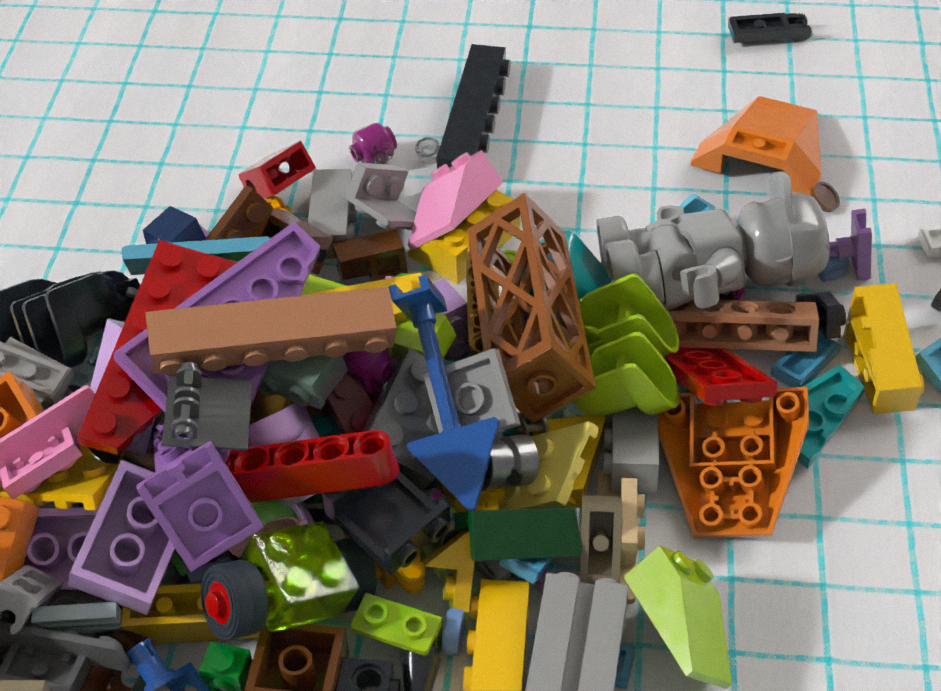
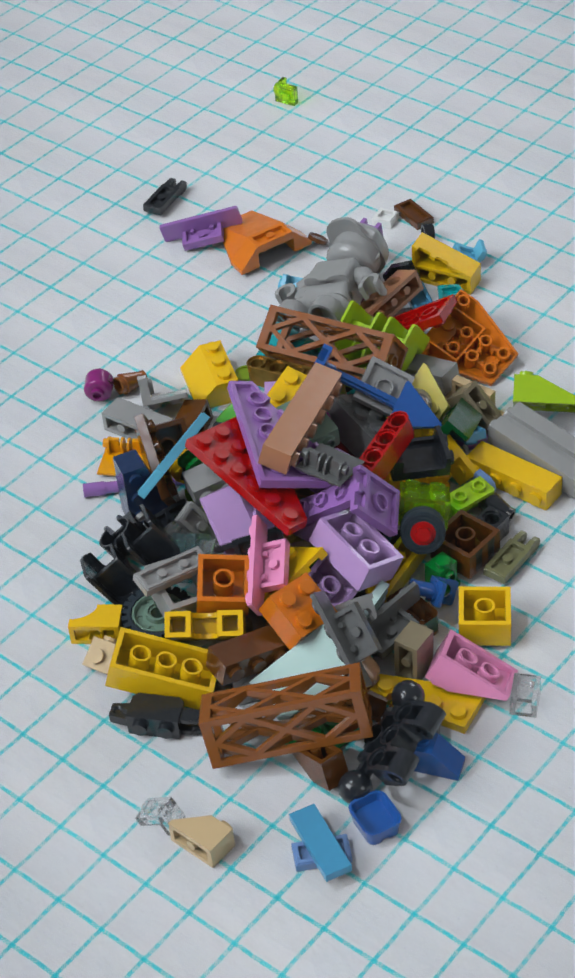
camera: 55 degrees left, 5 degrees down
(267, 176) = (88, 429): red torso -> none
(417, 172) = (127, 382): none -> dark orange cone
(430, 147) = (125, 365): clear hinge -> none
(452, 196) = (192, 364): bright pink slope -> none
(475, 103) = (113, 335): black brick -> none
(729, 85) = (202, 228): none -> medium lavender bracket

